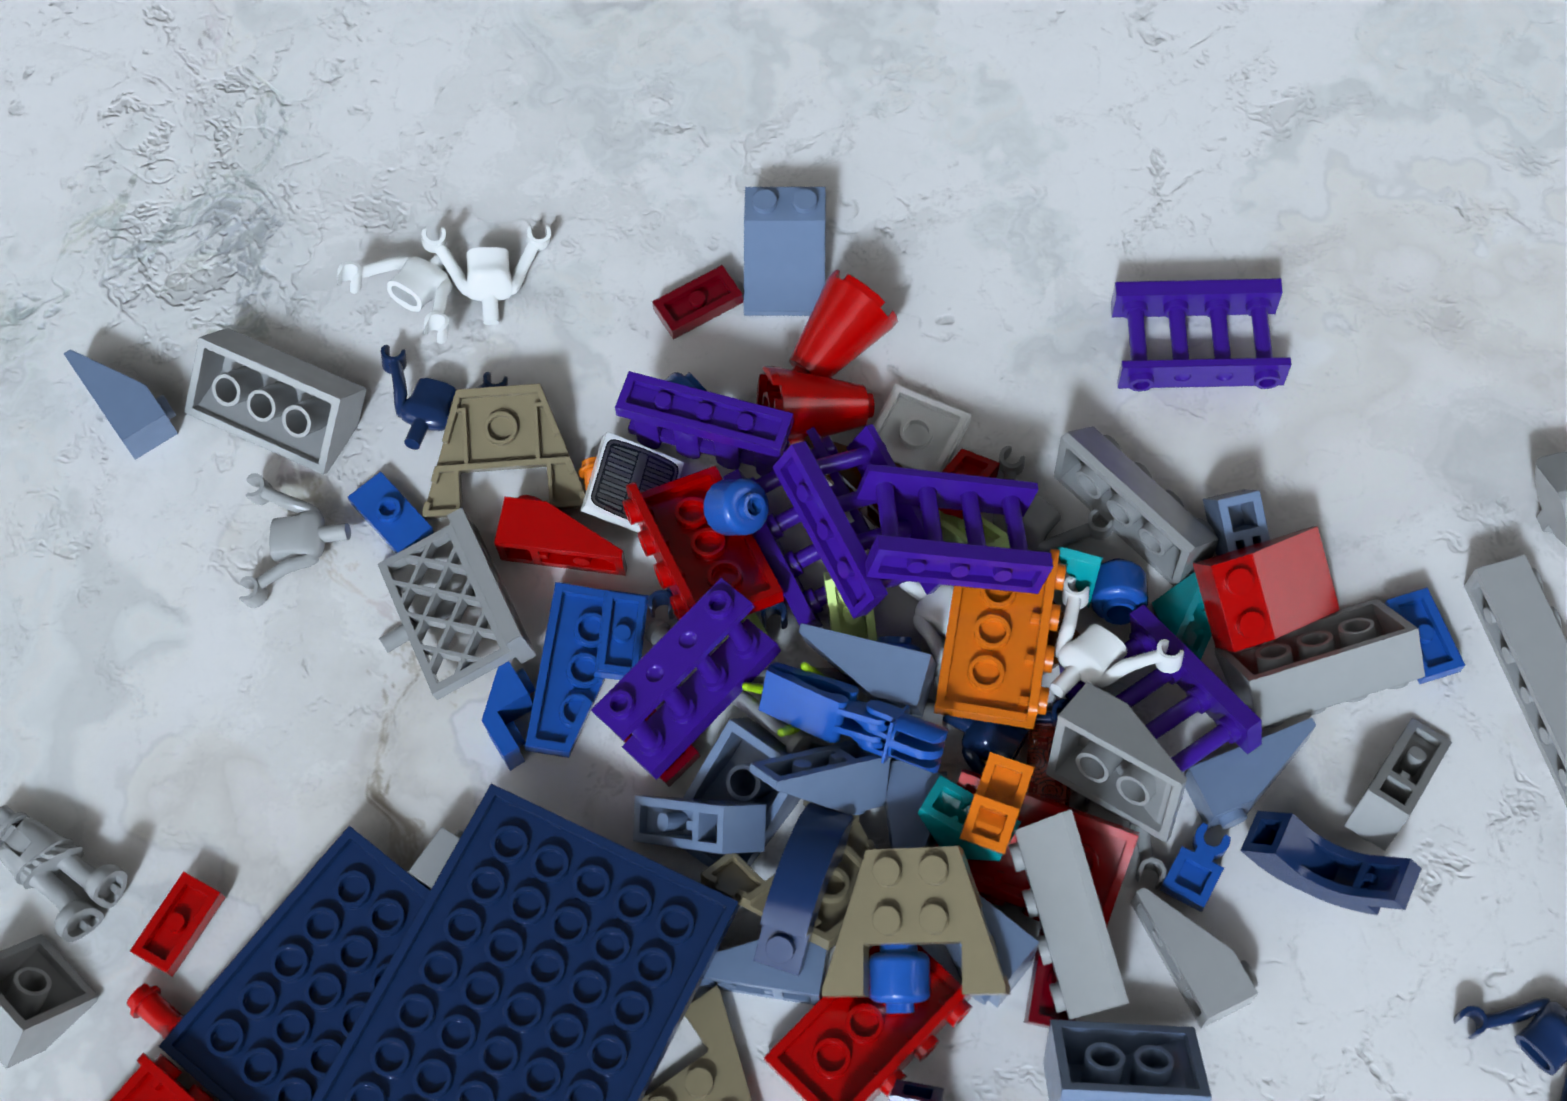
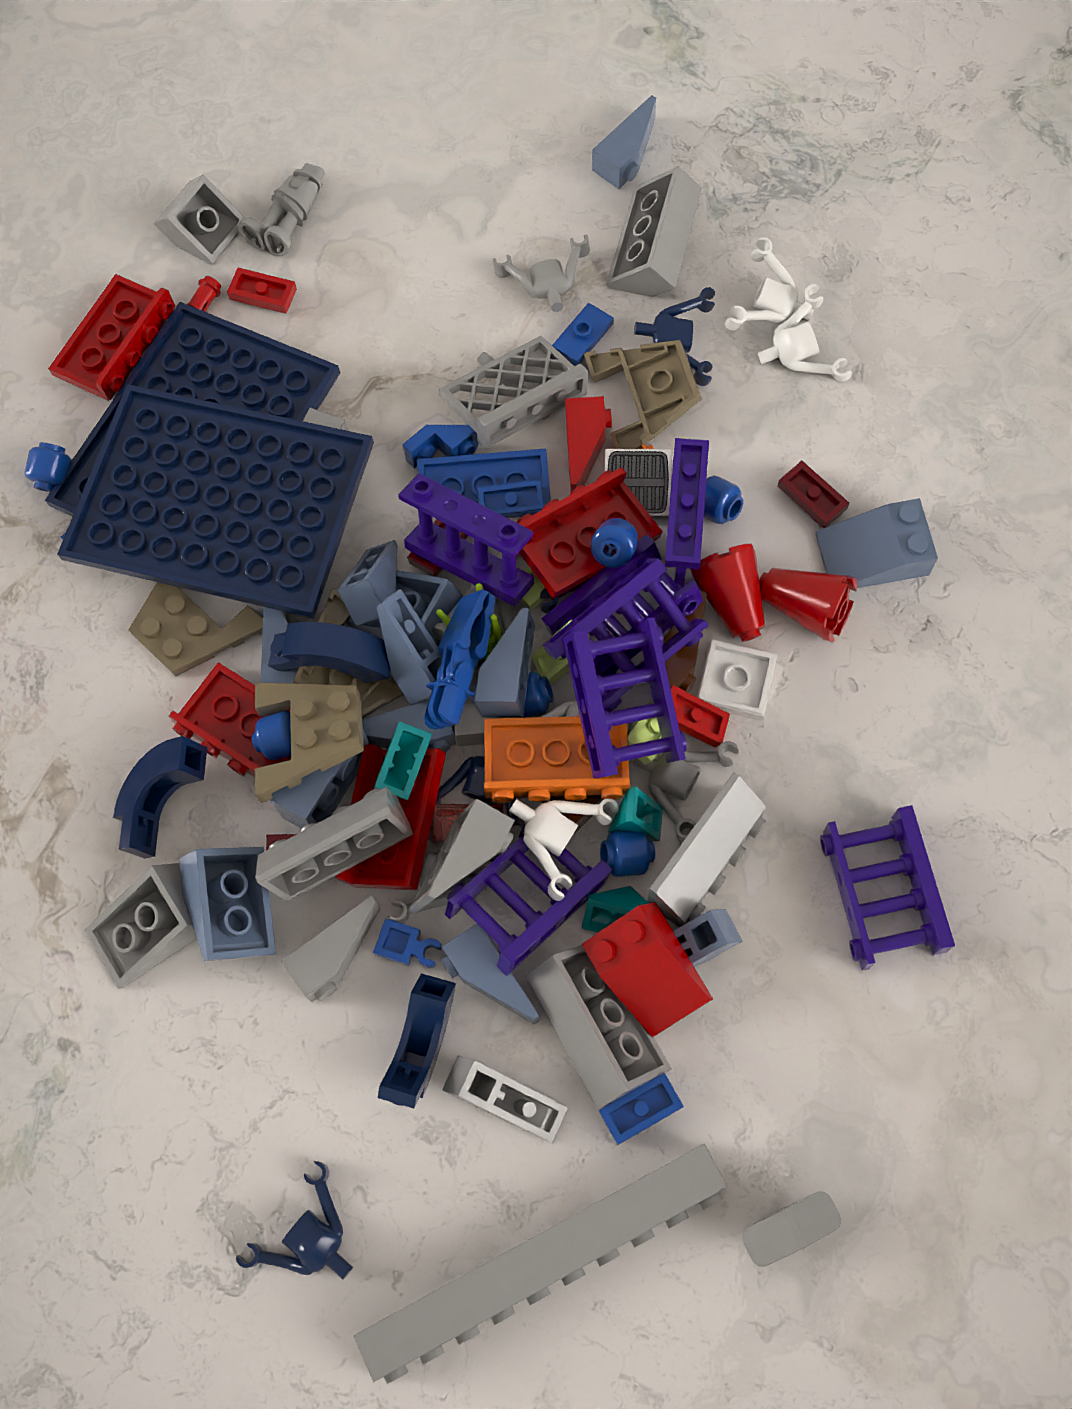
camera: 80 degrees right, 5 degrees up
(997, 803) = (412, 776): orange slope -> none

